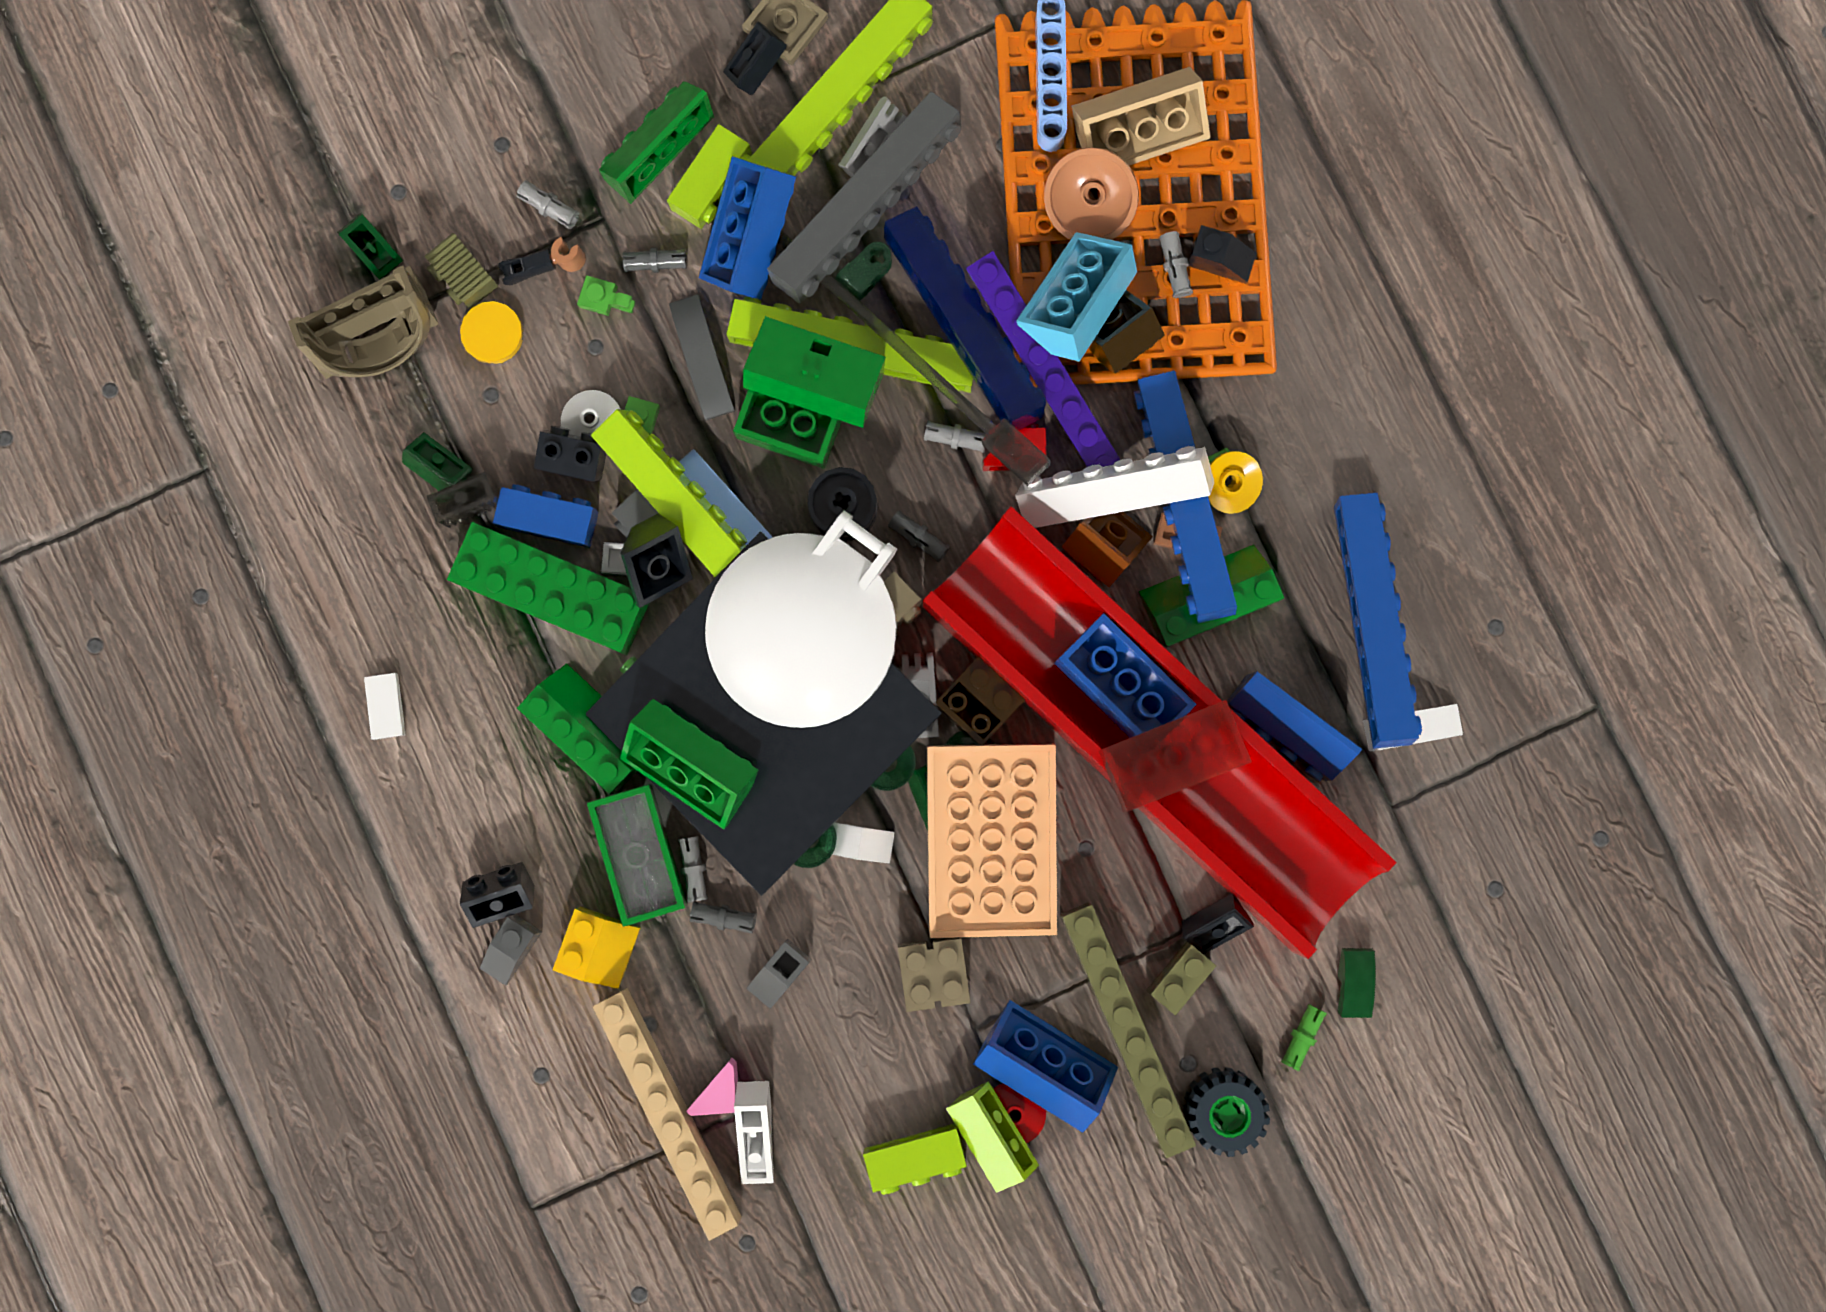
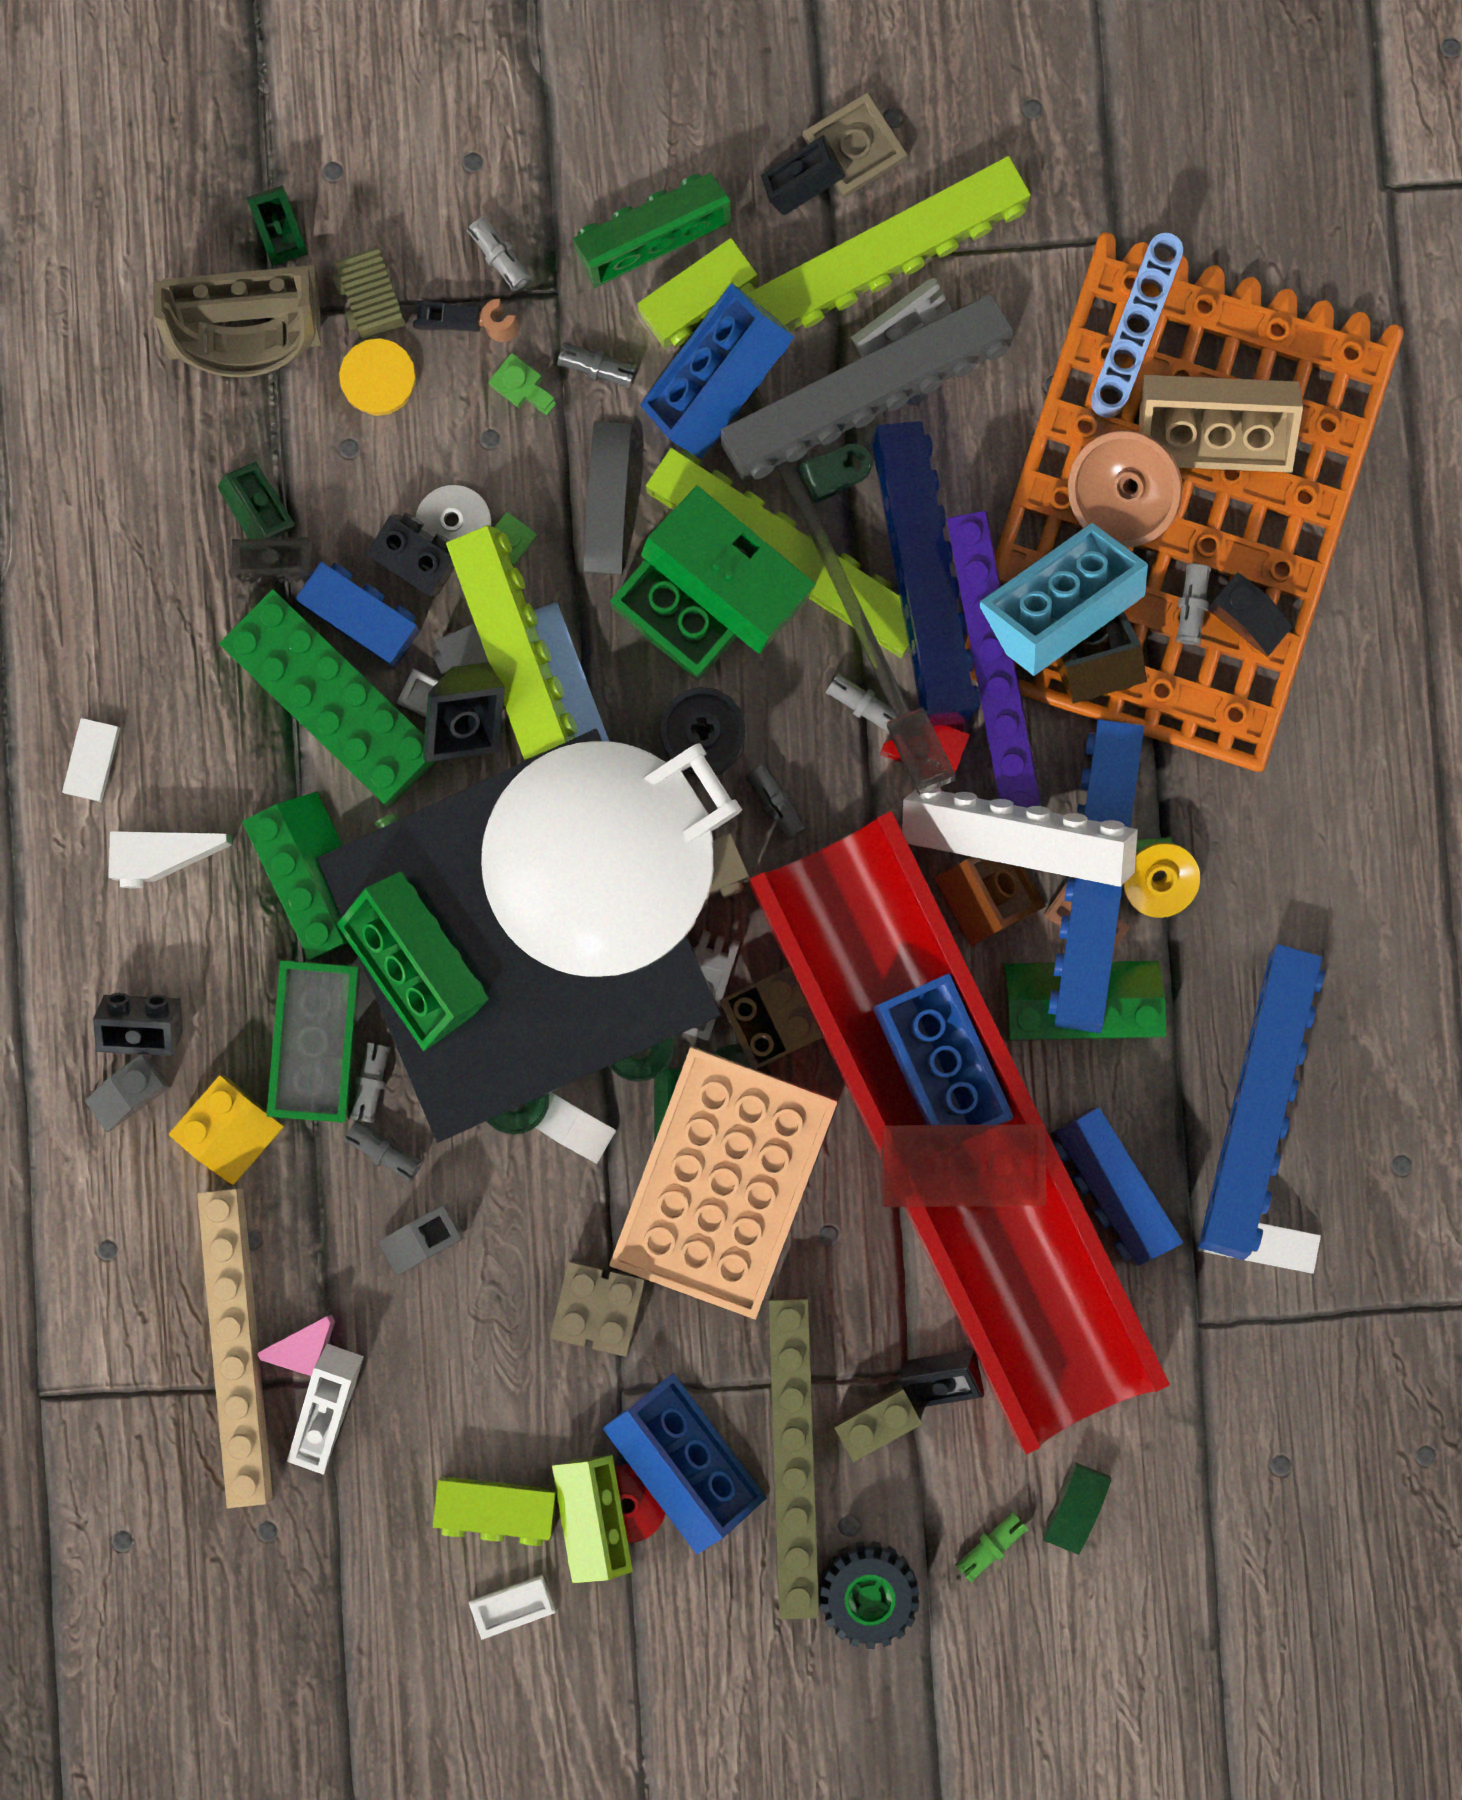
camera: 20 degrees right, 0 degrees up
(461, 760) = (154, 855): none -> white slope
(957, 1227) = (512, 1606): none -> white tile

